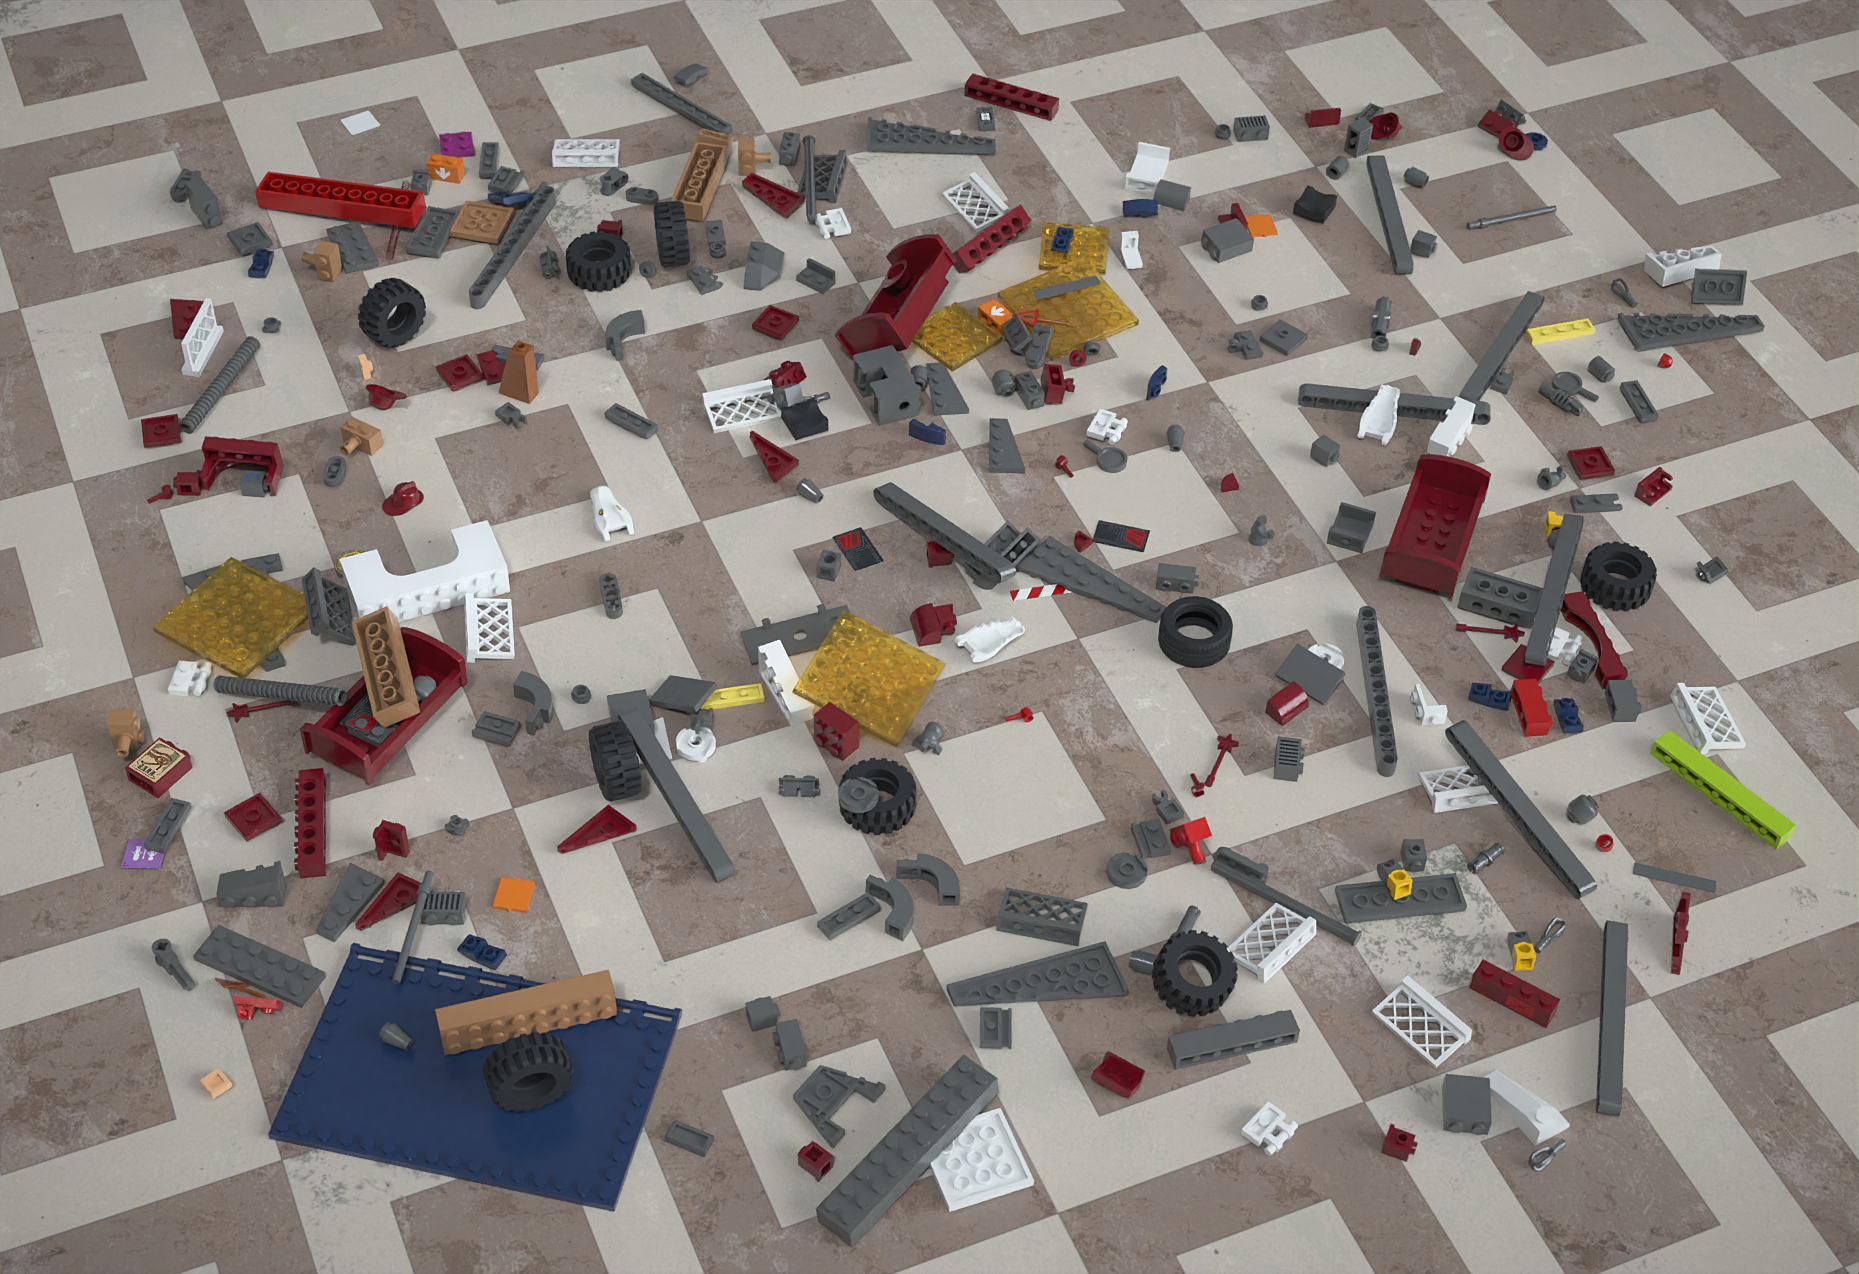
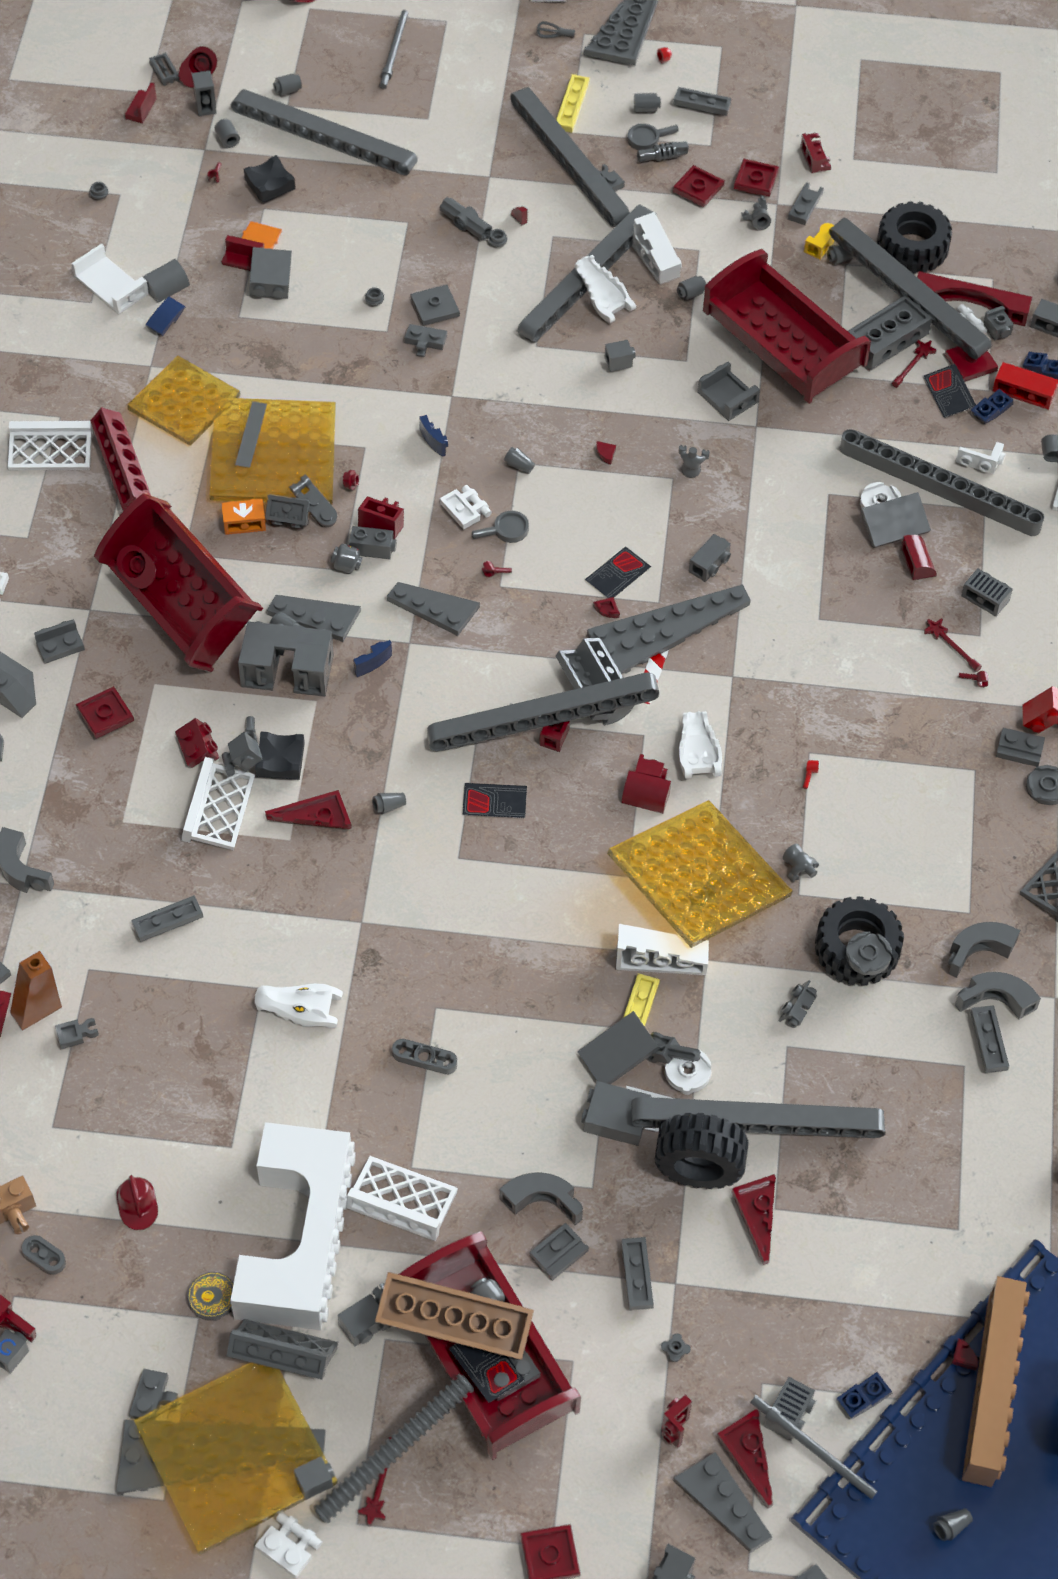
camera: 60 degrees left, 10 degrees up
(232, 656) = (314, 1477): none -> dark grey brick
(311, 823) = (588, 1482): dark red brick -> none
(504, 779) = (637, 1273): none -> dark grey plate
(514, 894) = (799, 1332): orange piece -> none
(580, 694) = (554, 1141): dark grey plate -> none
(814, 625) = (585, 937): dark grey piece -> none
(828, 565) = (512, 843): dark grey brick -> none
(836, 731) = (755, 935): dark red brick -> none
(955, 336) = (252, 560): clear yellow plate -> none
(1031, 318) = (276, 487): dark orange piece -> none
(1062, 240) = (173, 403): dark blue slope -> none
(1091, 347) = (344, 460): dark grey plate -> none
(1129, 249) = (226, 359): white bracket -> none
(1167, 809) = (996, 713): dark grey plate -> none
(1191, 651) = (795, 554): black tyre -> none
(1251, 128) = (116, 166): dark grey brick -> none
(1292, 177) = (214, 173): none -> dark red hand
(1424, 244) = (390, 129): dark grey brick -> none
(1482, 663) = (949, 390): none -> black sticker
(1547, 432) = (698, 186): none -> dark red plate
(1712, 570) = (939, 172): dark grey bracket -> none

